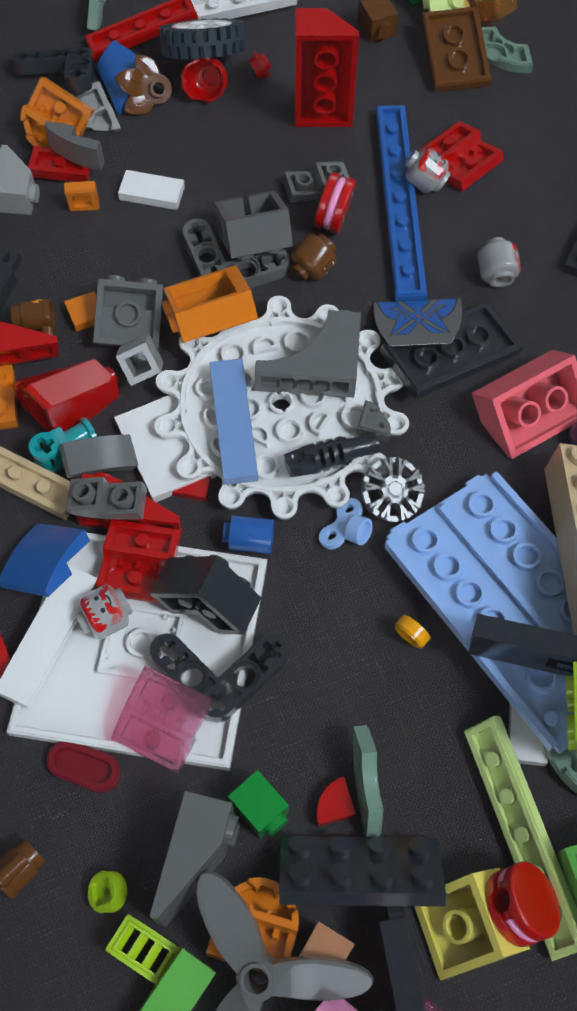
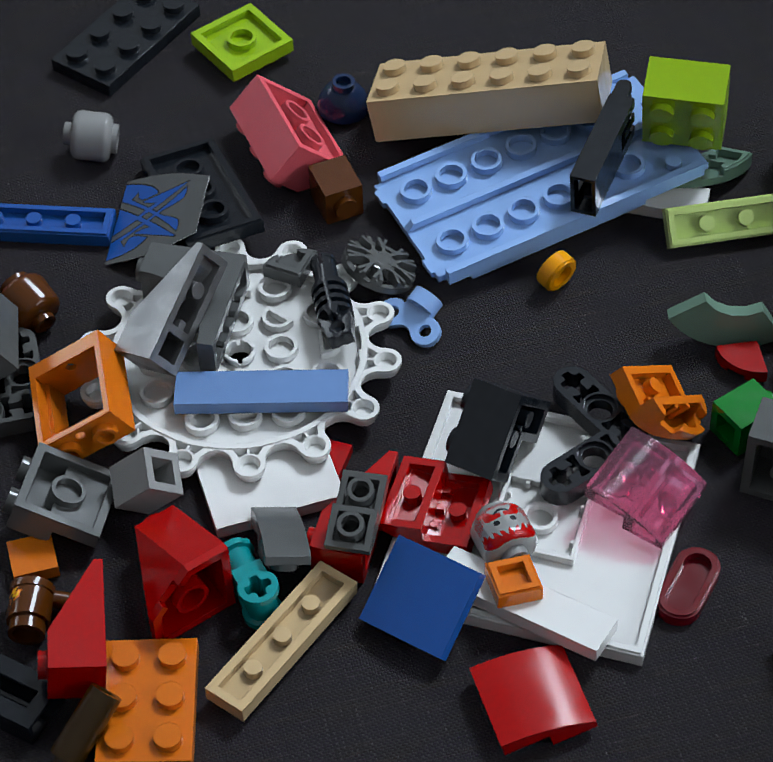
camera: 80 degrees left, 15 degrees down
(56, 622) = (513, 581): none -> orange tile
(249, 534) = (415, 397): blue brick -> none
(255, 726) = (658, 401): none -> orange slope
(276, 336) = (171, 313): none -> flat silver slope
(475, 445) = (336, 189): none -> reddish brown brick

